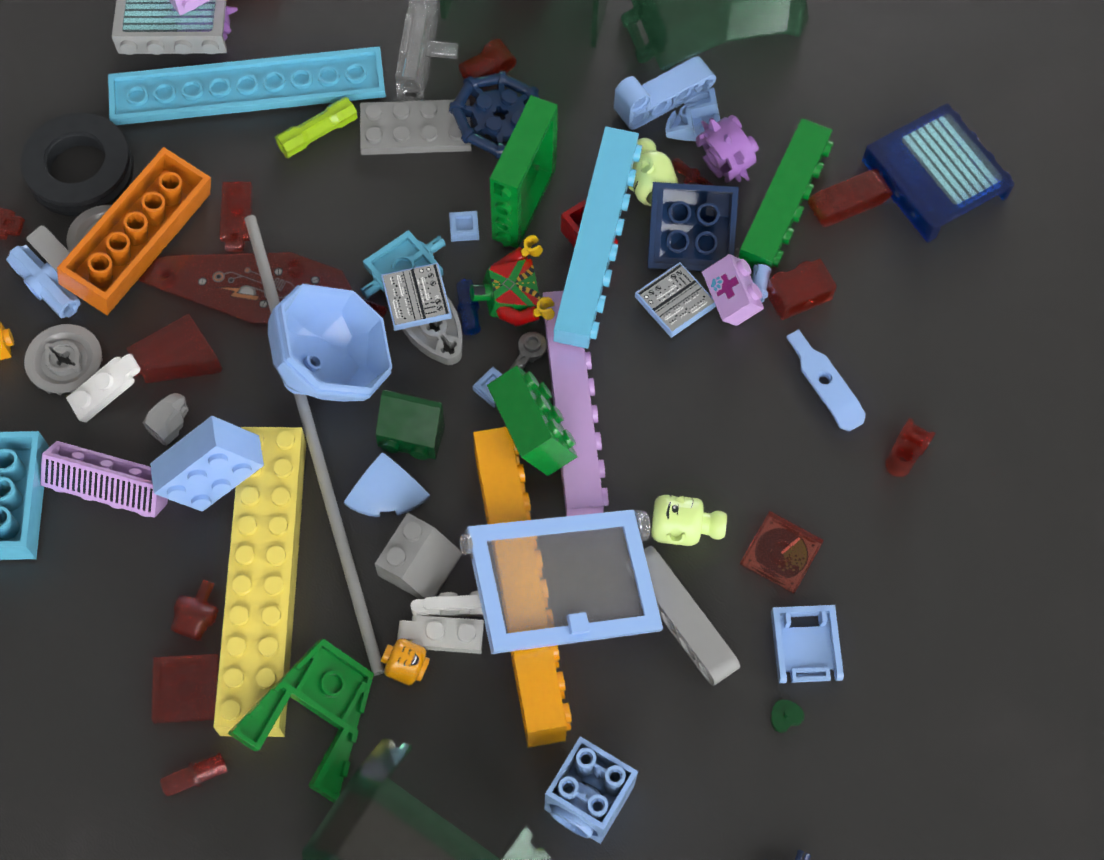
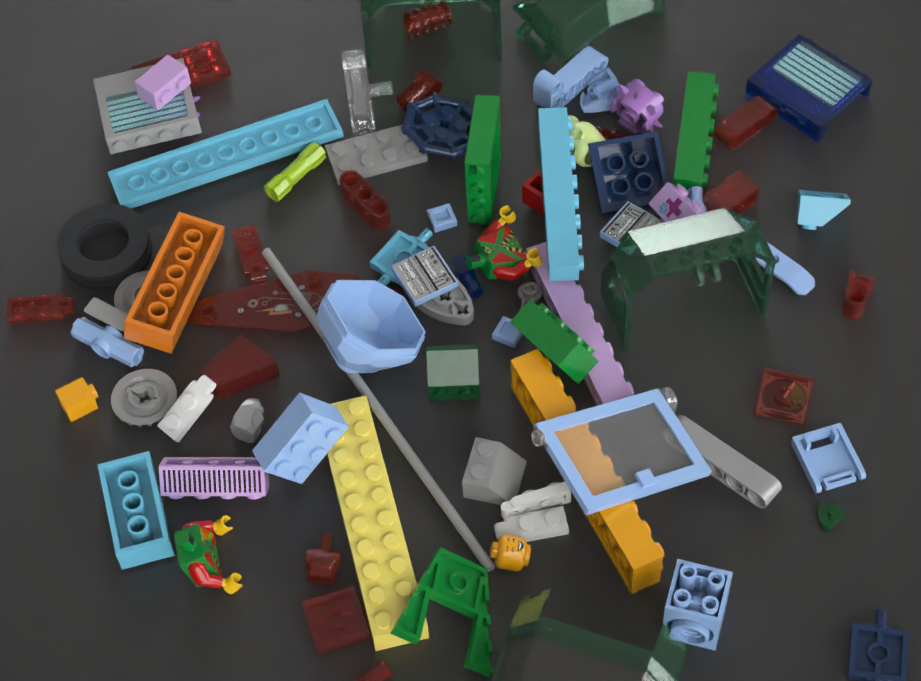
camera: 10 degrees left, 10 degrees down
(58, 569) = (199, 554): none -> torso
(381, 172) = (365, 200): none -> clear red beam
(385, 489) = (447, 429): light blue brick -> none
(682, 521) = (699, 389): yellowish green piece -> none
(713, 356) = (689, 247): none -> clear green windscreen
(900, 327) = (818, 207): none -> medium azure slope

